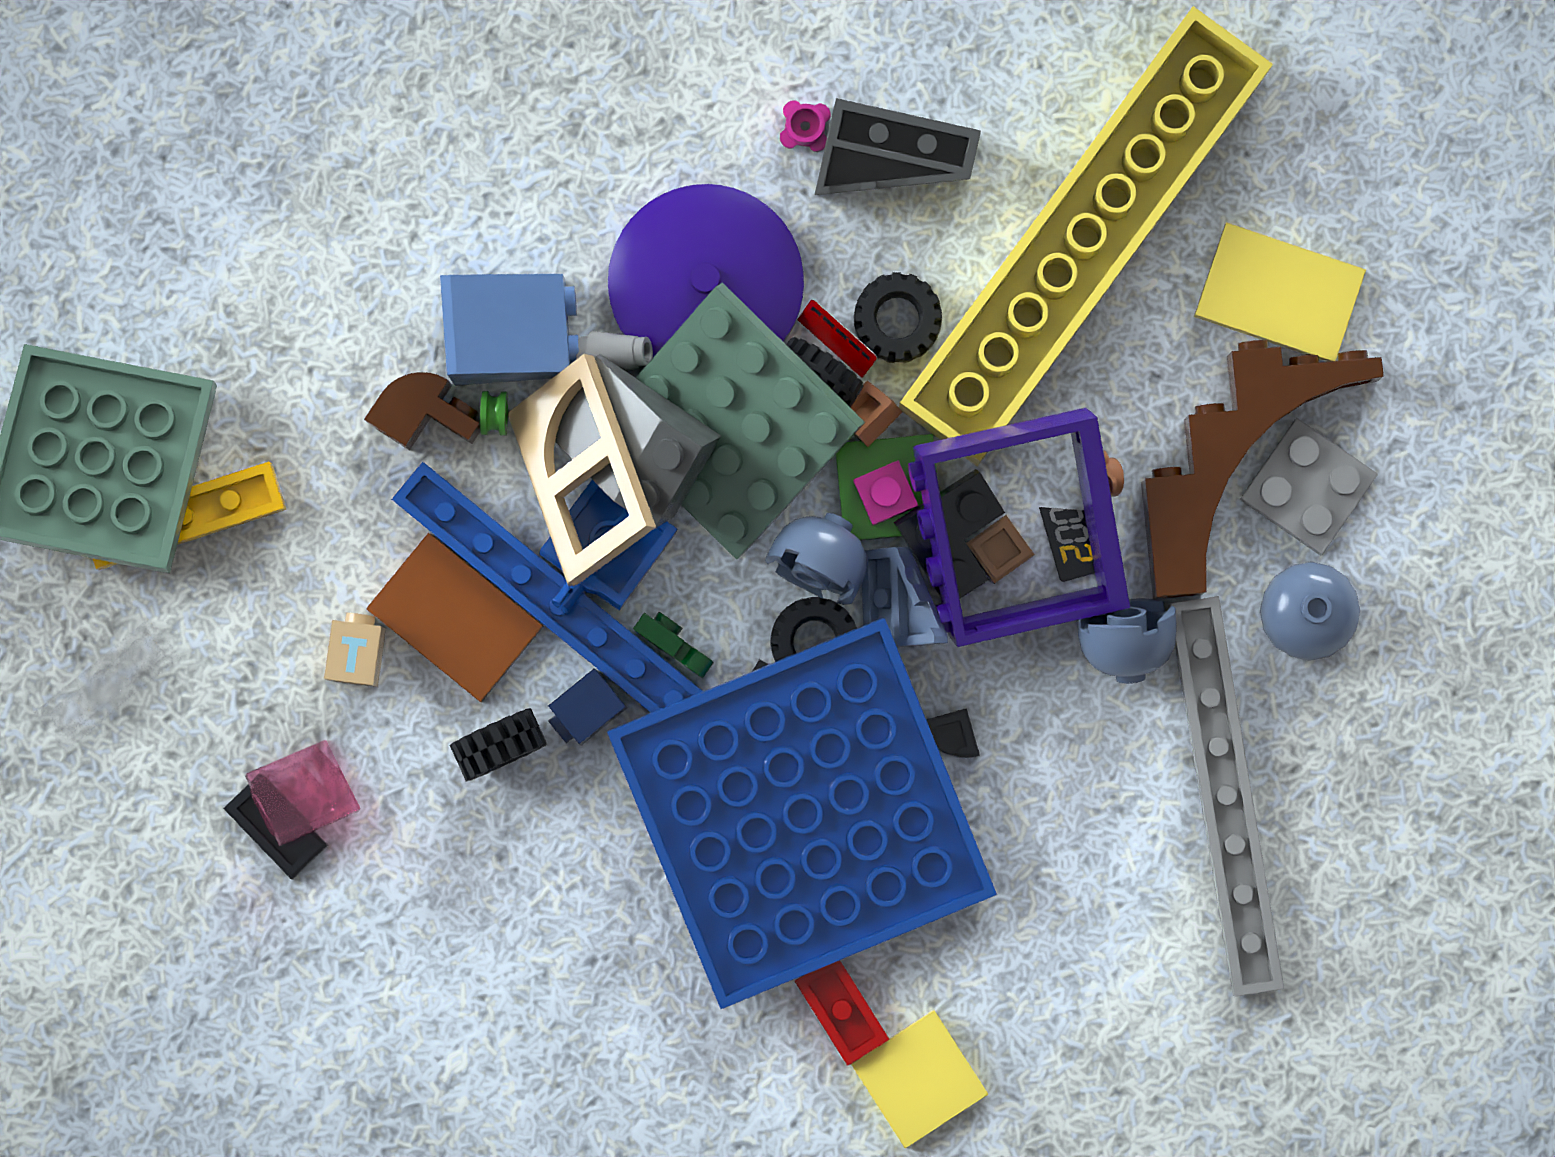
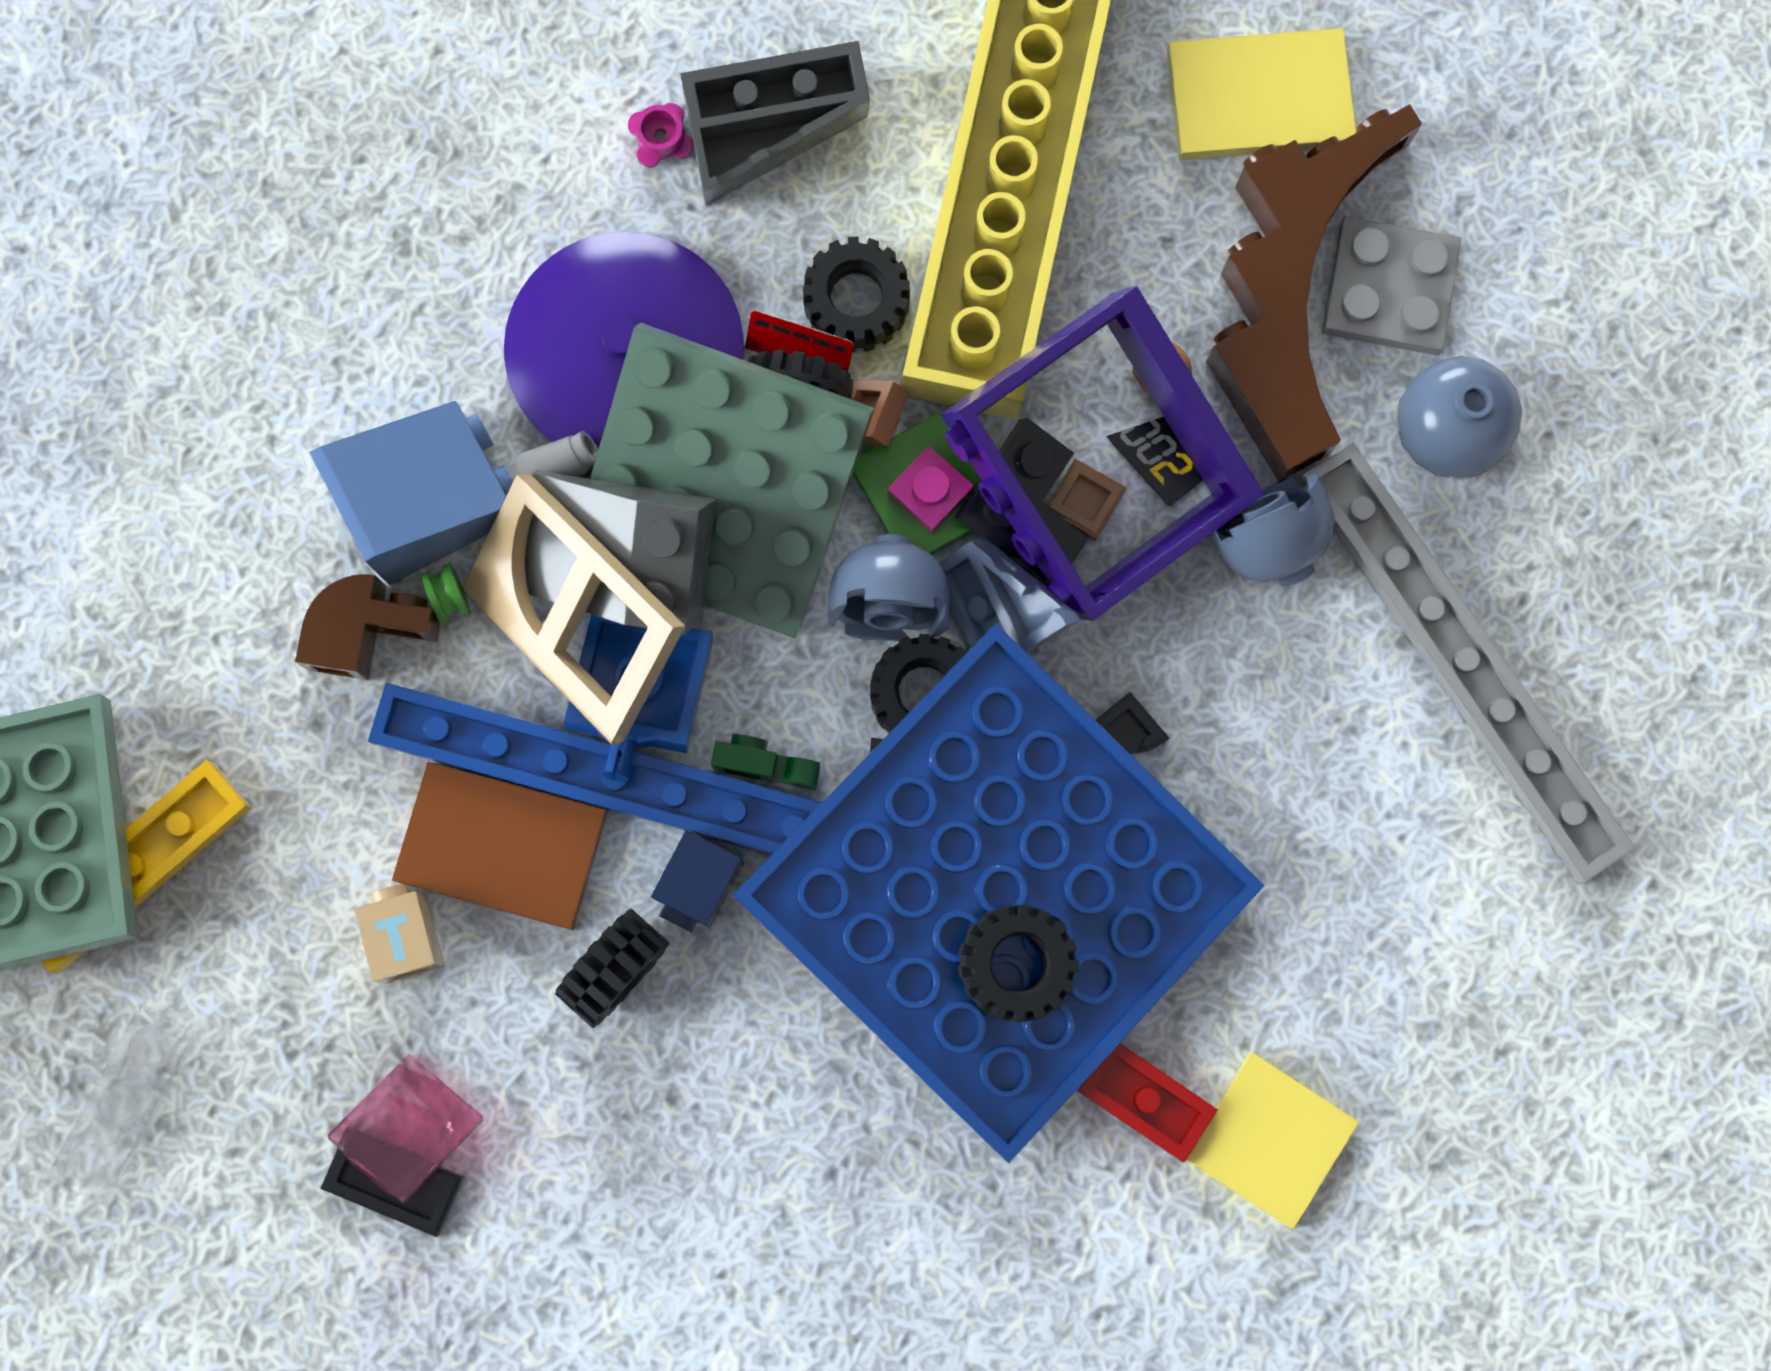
camera: 30 degrees left, 5 degrees down
(795, 902) = (1056, 974): none -> black tyre

